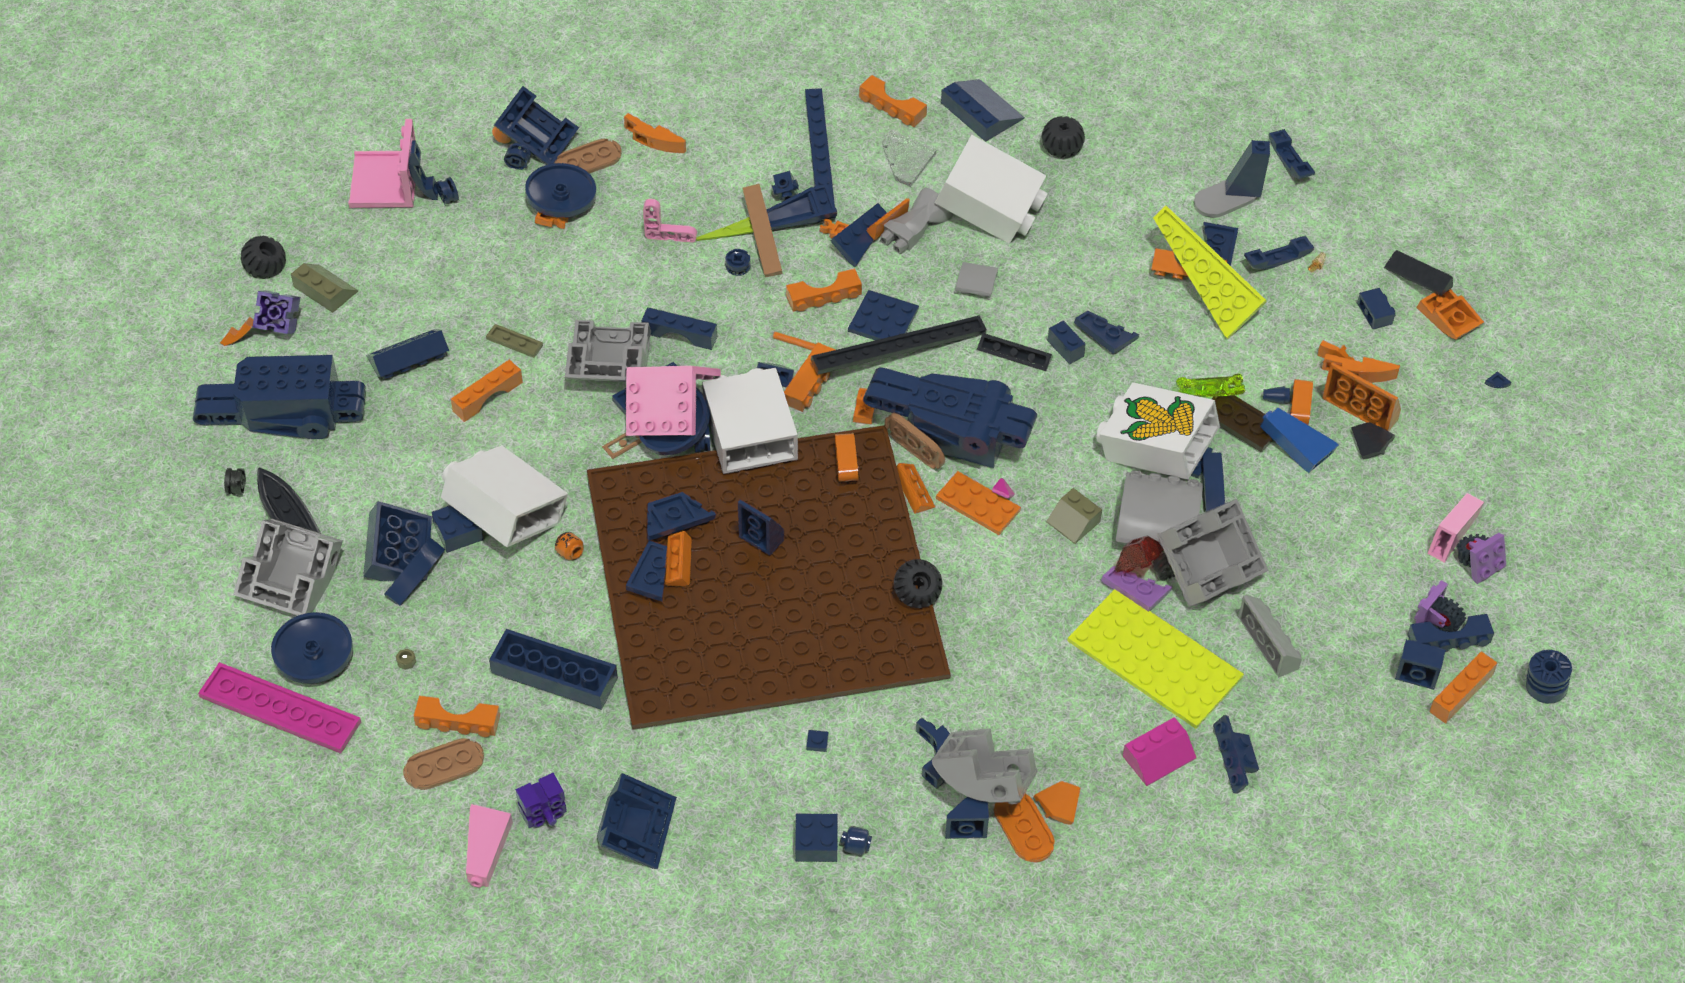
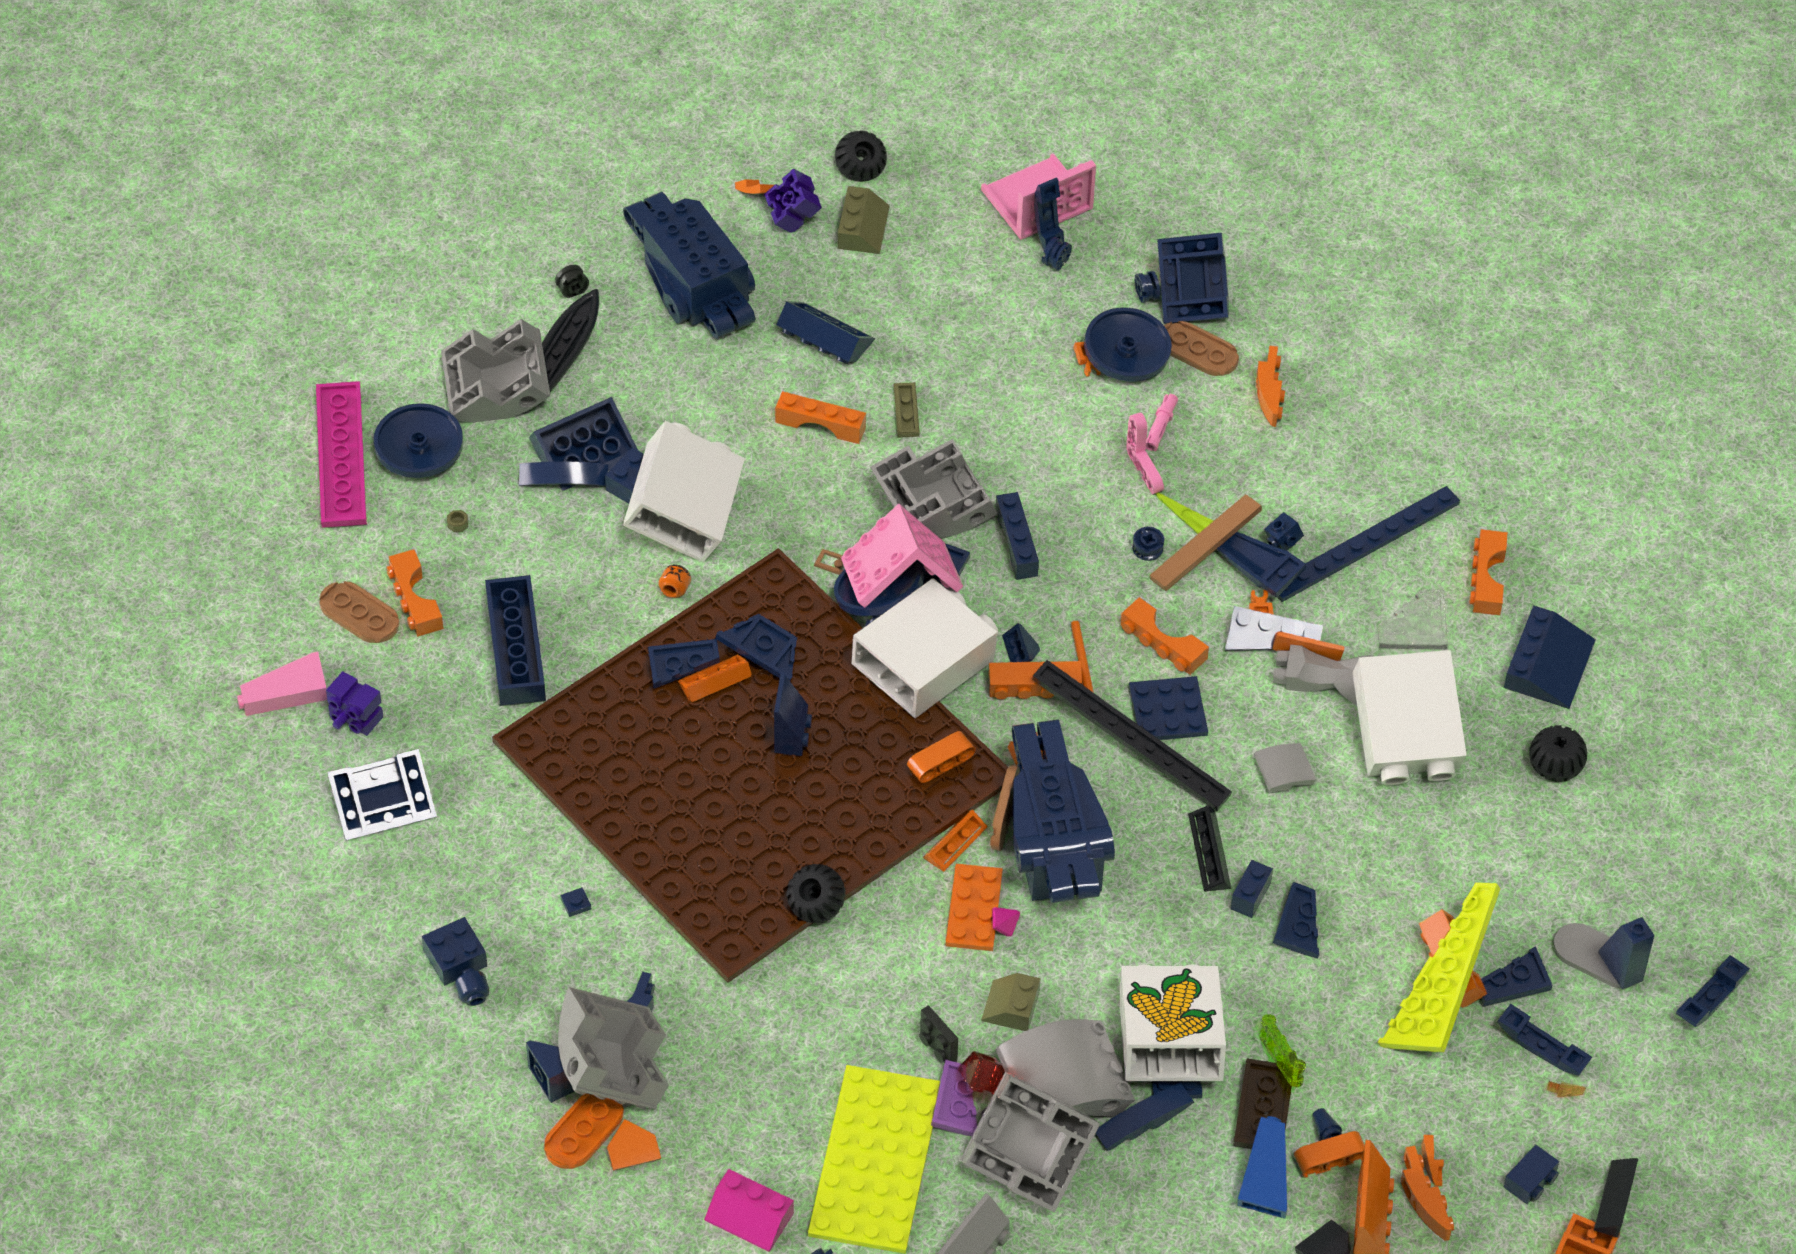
camera: 60 degrees right, 0 degrees up
(633, 202) = (1163, 416): none -> bright pink pin
(1084, 568) = (938, 1036): none -> pearl dark grey plate

